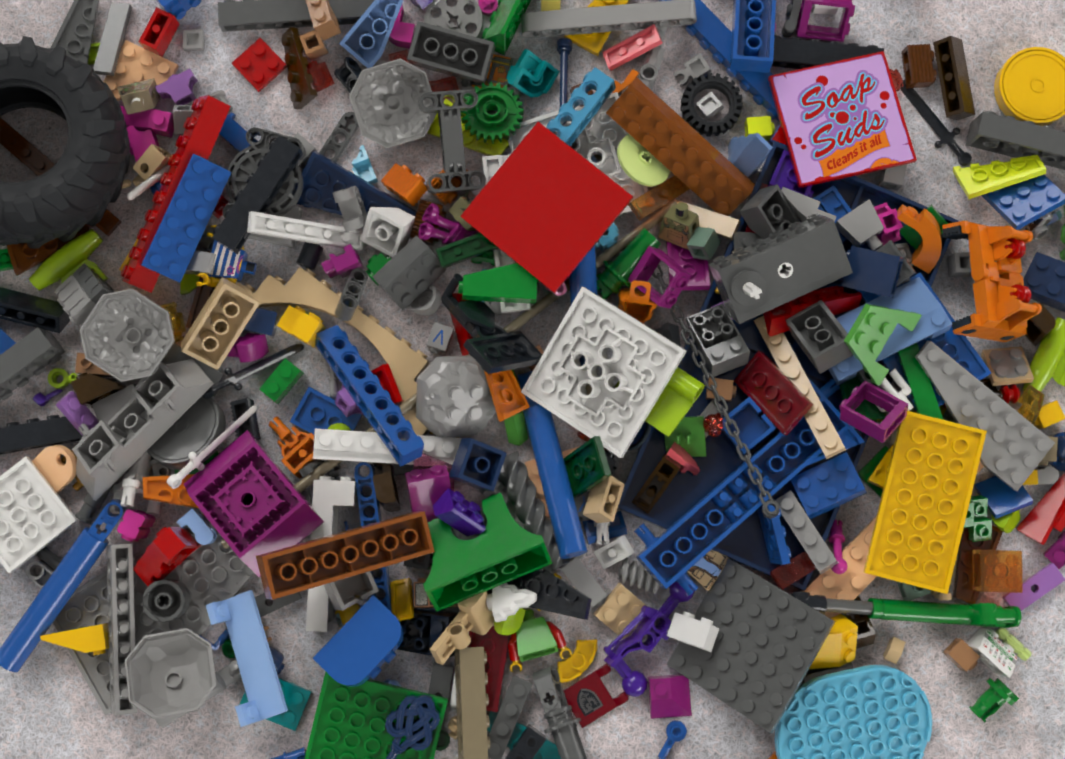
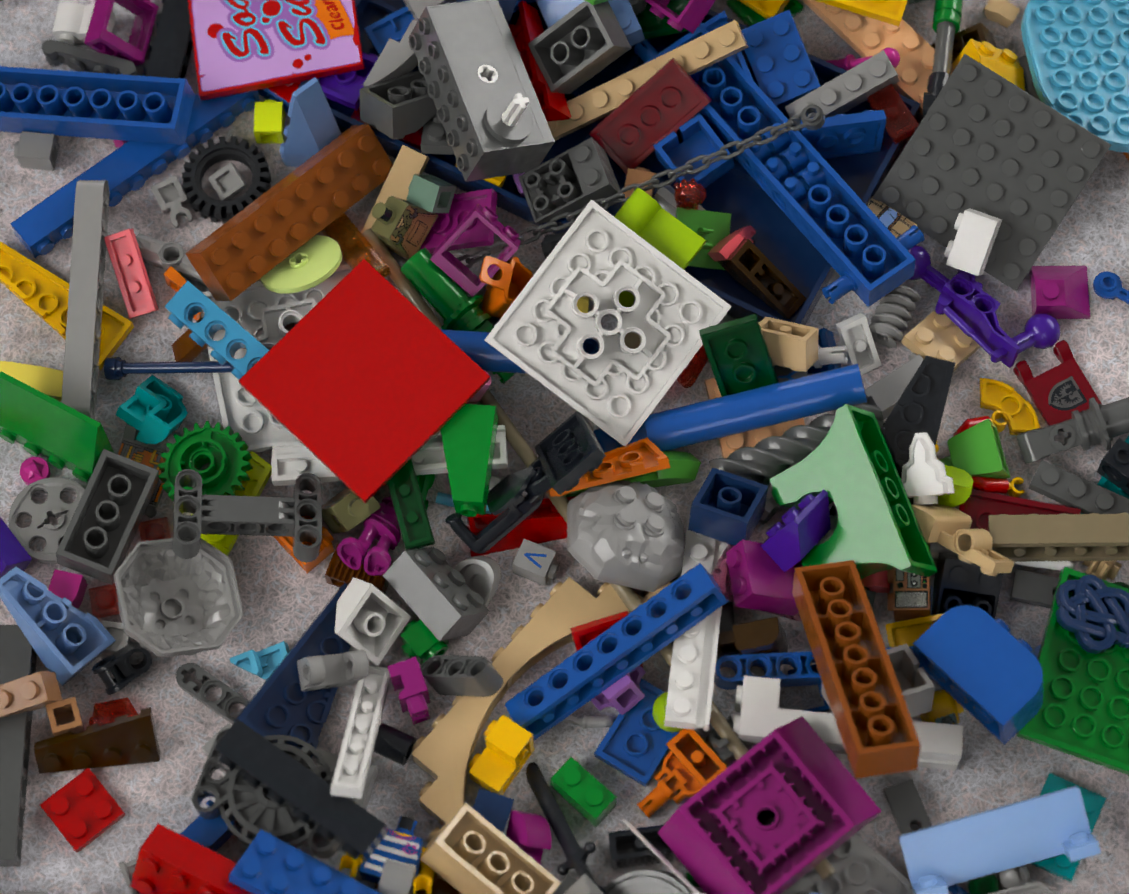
camera: 80 degrees left, 15 degrees down
(405, 184) = (299, 596): orange brick -> none

